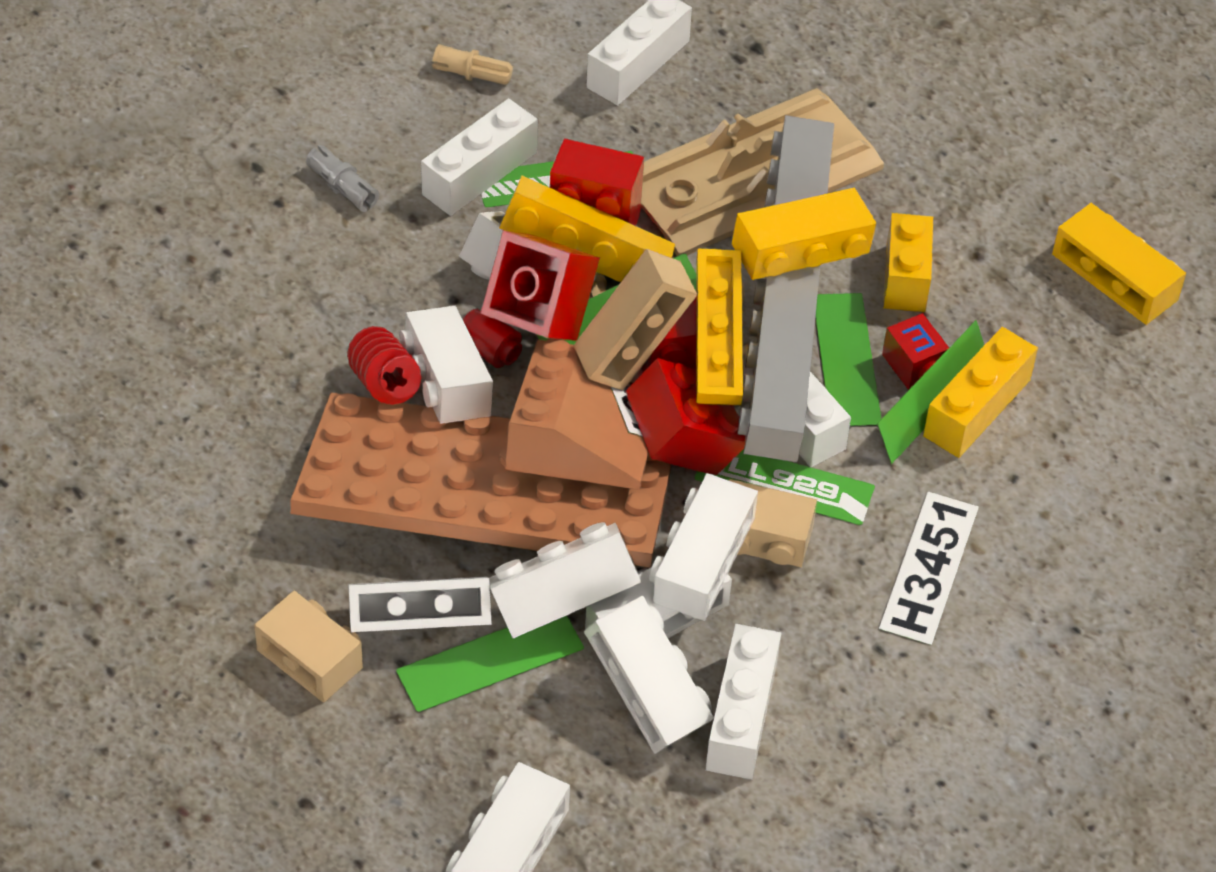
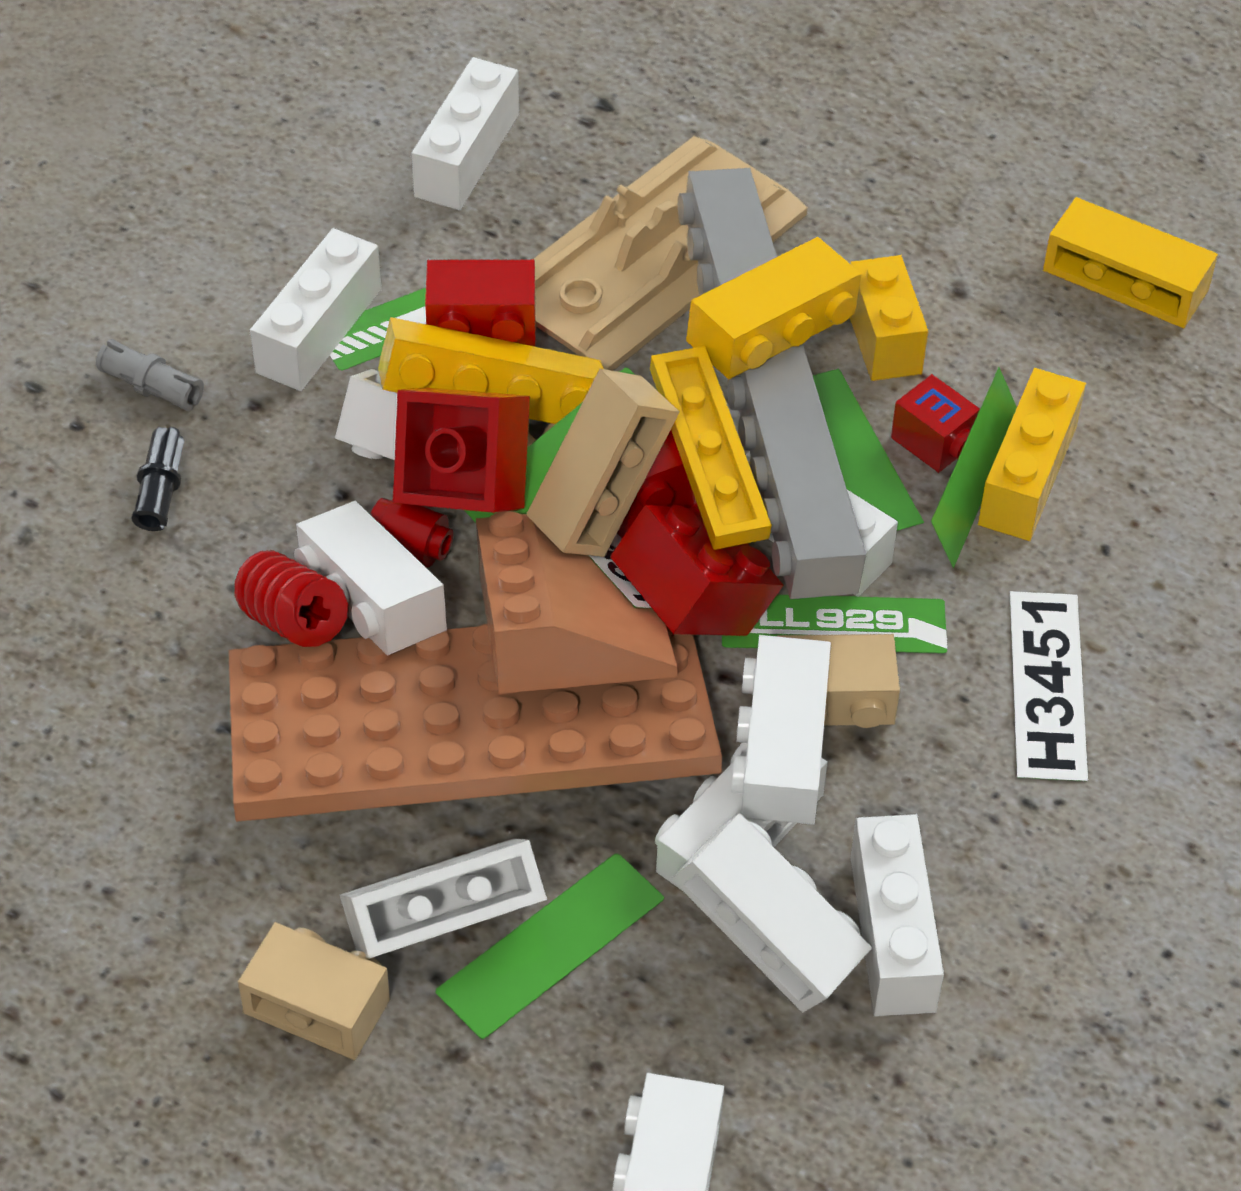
camera: 15 degrees left, 0 degrees up
(322, 256) = (158, 479): none -> black axle
(471, 65) = (265, 199): tan axle -> none
(563, 578) = (622, 816): white brick -> none

